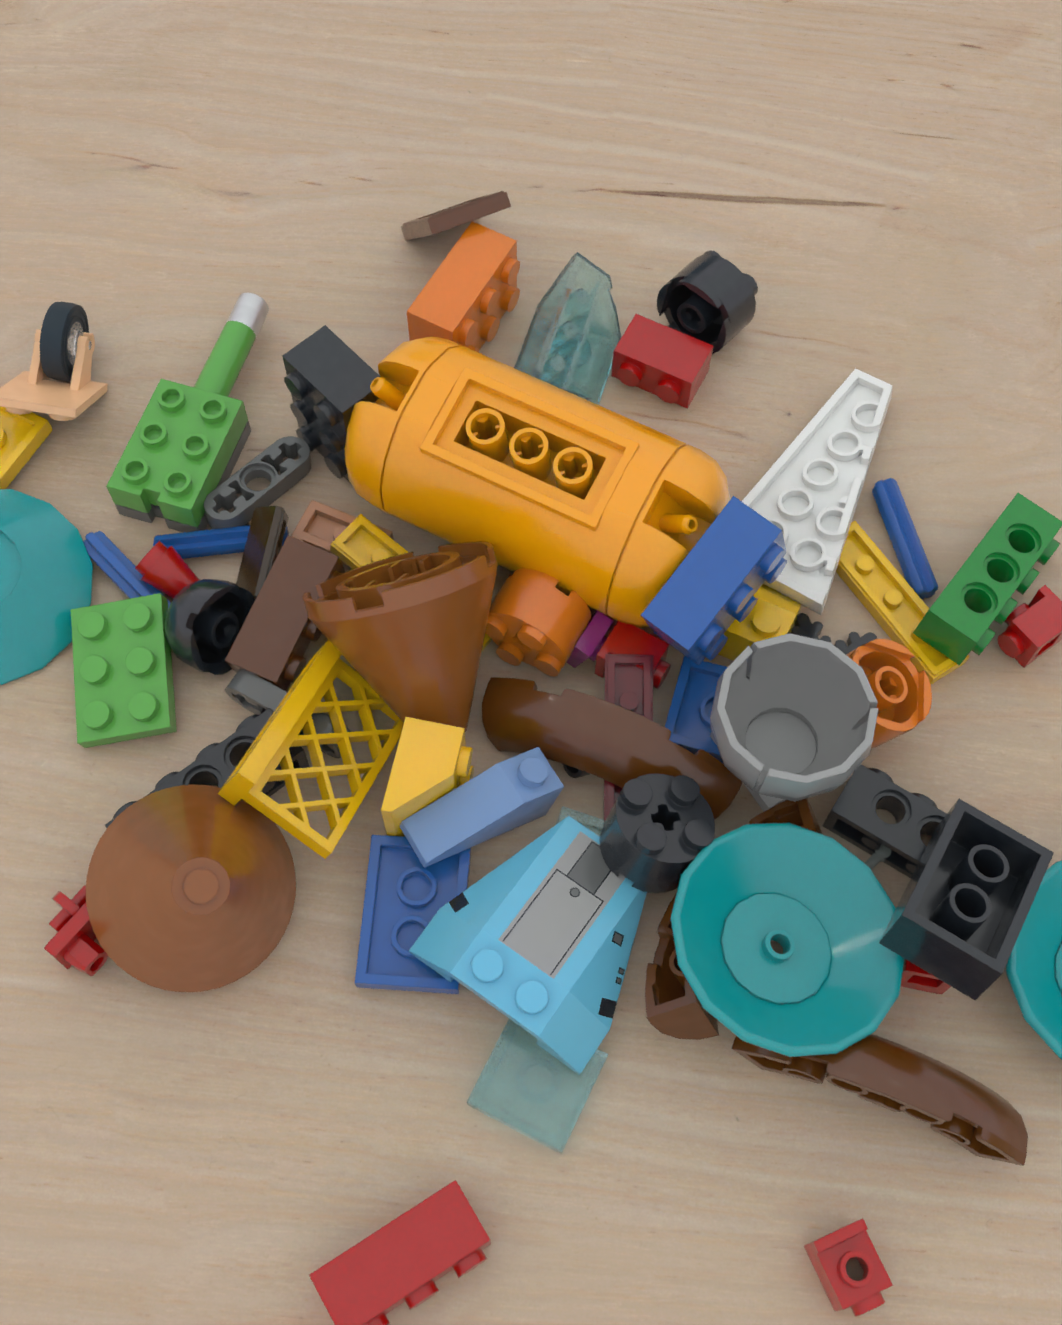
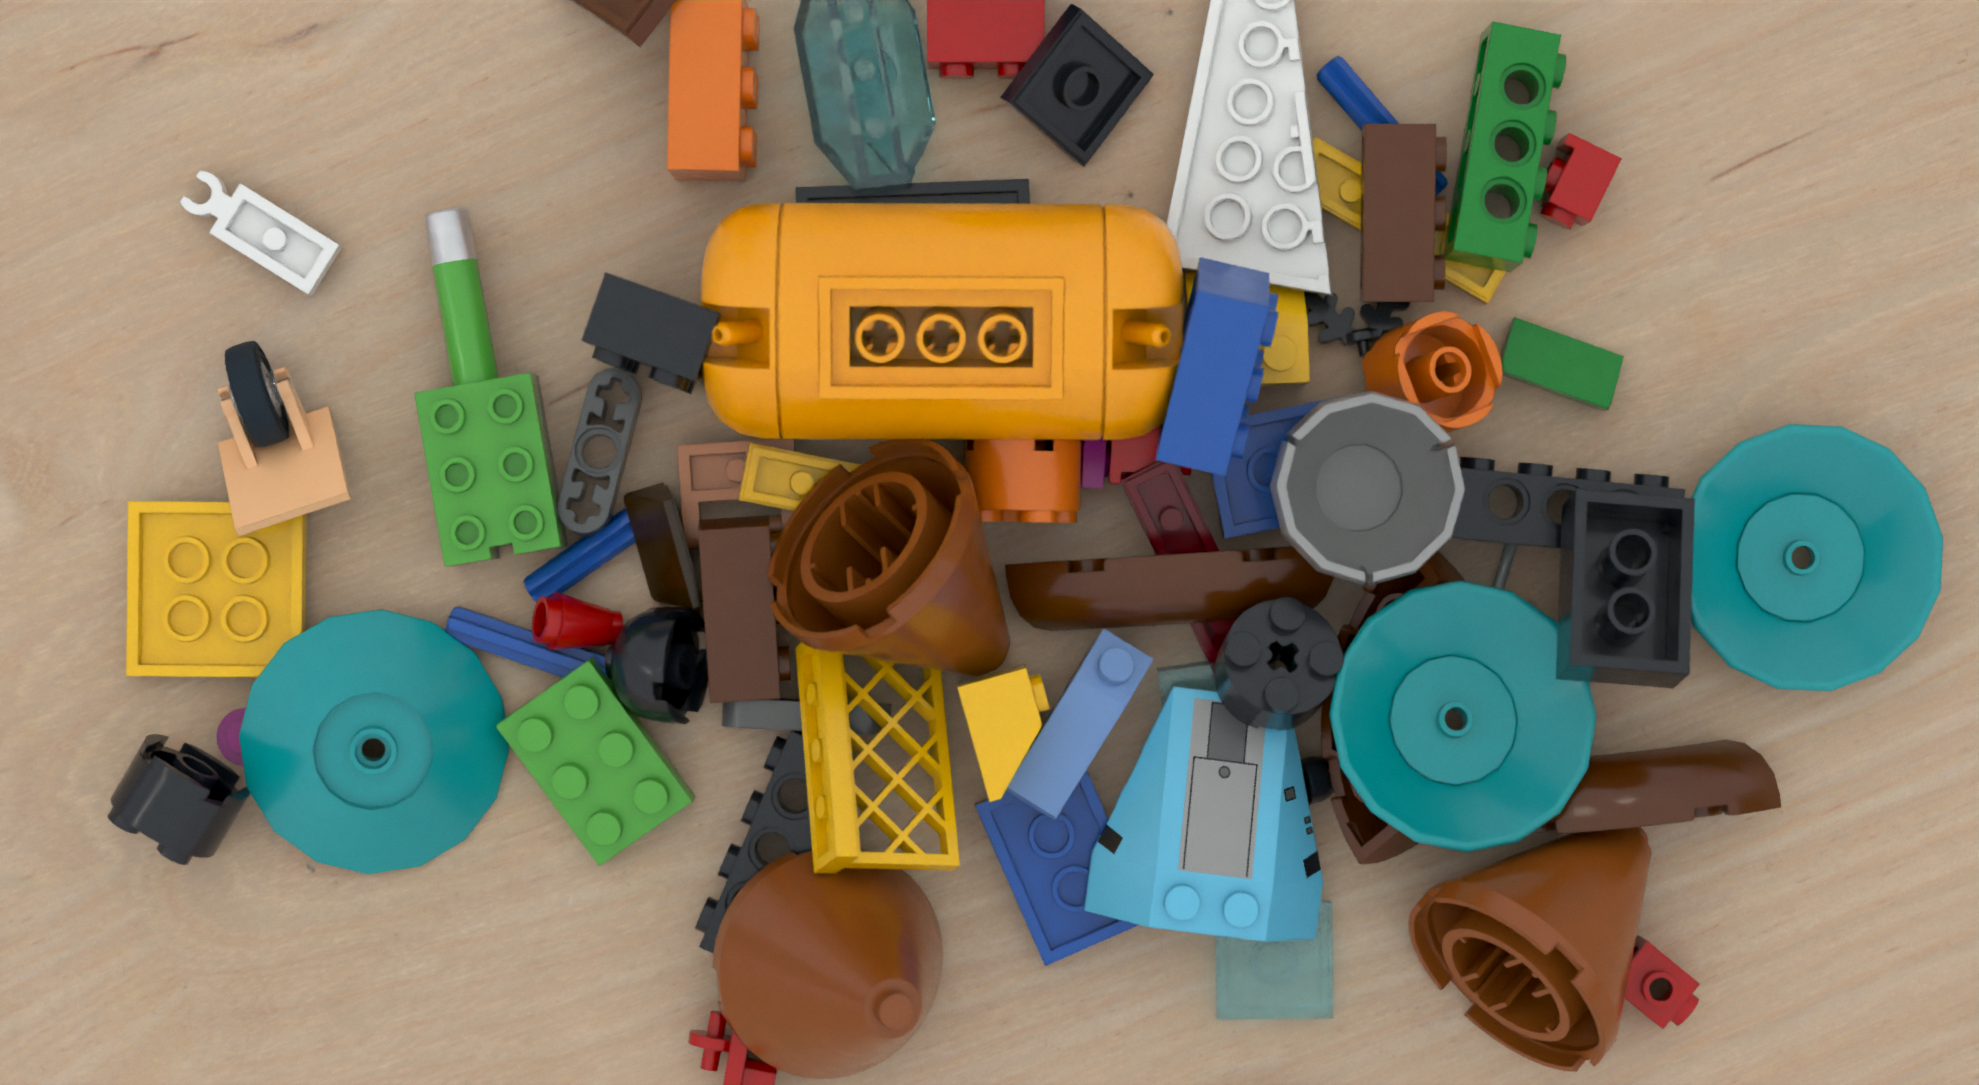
camera: 25 degrees left, 25 degrees up
(139, 272) = (266, 234): none -> white plate
(642, 950) = (1316, 779): none -> black hinge
(708, 407) = (1077, 85): none -> black tile
(765, 1166) = (1541, 942): none -> dark orange cone
(897, 578) = (1401, 212): none -> reddish brown brick
(968, 748) = (1560, 364): none -> green slope

